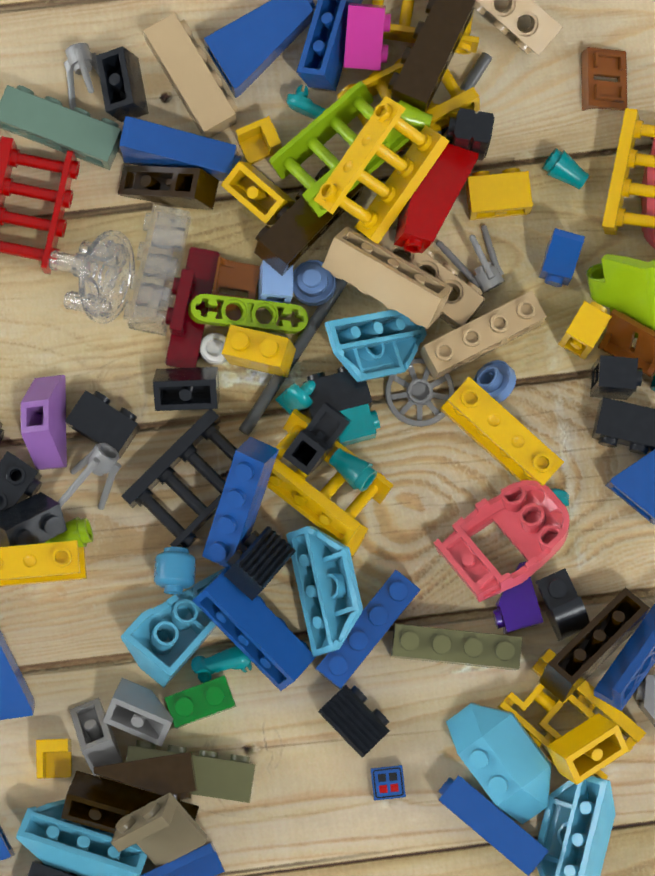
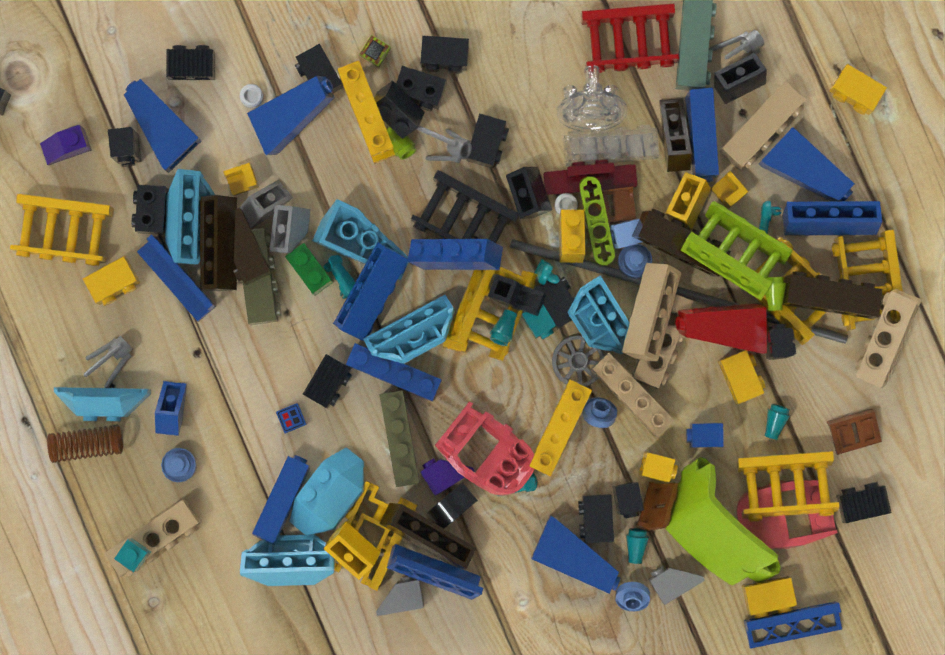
camera: 80 degrees right, 5 degrees up
(44, 422) = (475, 98): medium lavender slope -> none
(160, 830) = (210, 266): dark tan bracket -> none
(174, 570) = (395, 223): dark azure head -> none
(259, 562) = (417, 281): black brick -> none
(365, 36) = (828, 244): dark pink brick -> none
(399, 186) = (720, 301): yellow fence -> none
(489, 273) = (679, 385): light grey plant -> none

